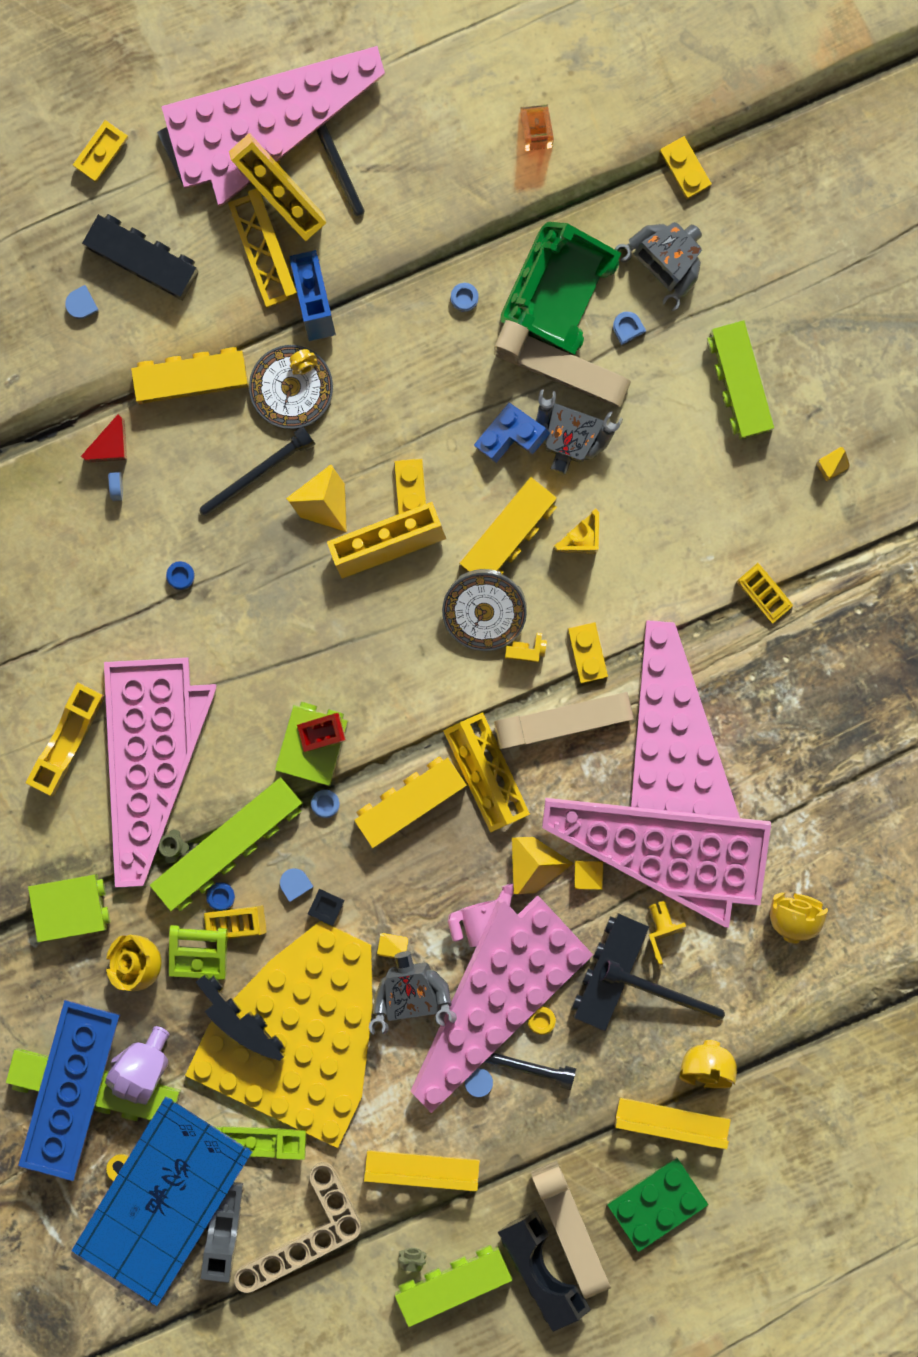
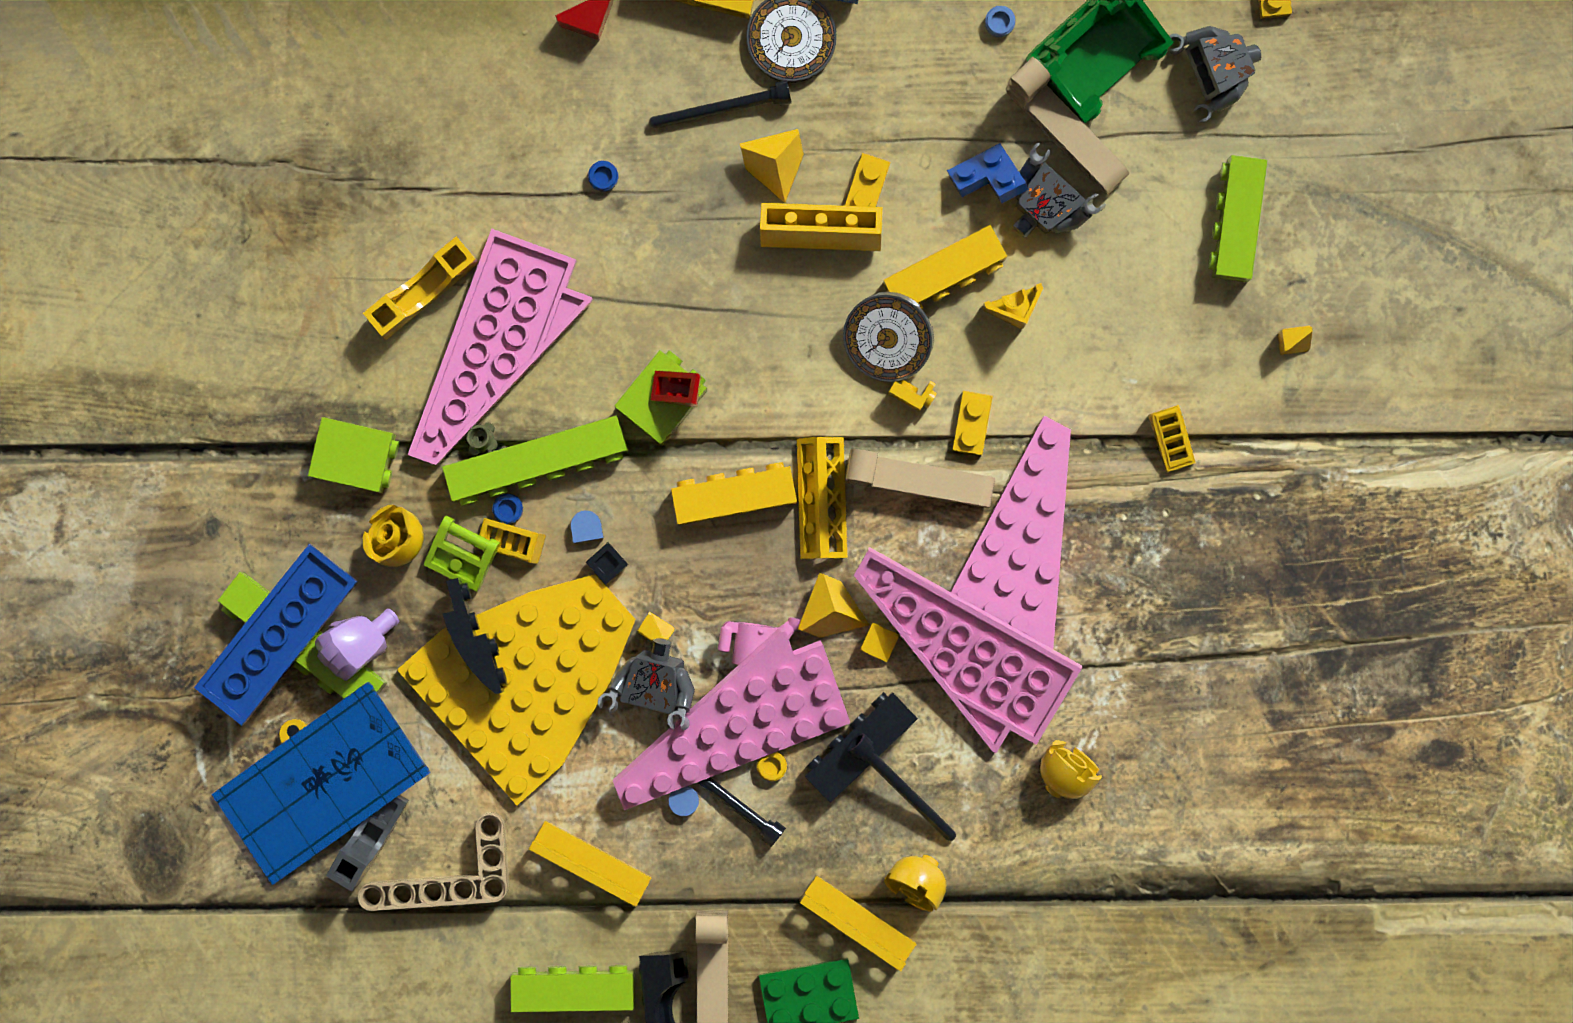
camera: 20 degrees right, 0 degrees up
(115, 486) = (577, 60): medium blue tile -> none
(269, 1141) = (452, 770): lime slope -> none
(302, 362) = (813, 16): yellow plate -> none
(325, 803) = (649, 461): medium blue tile -> none
(412, 1259) = (543, 947): olive plate -> none
(627, 327) = (1148, 119): medium blue tile -> none
(664, 928) = (932, 726): yellow bracket -> none

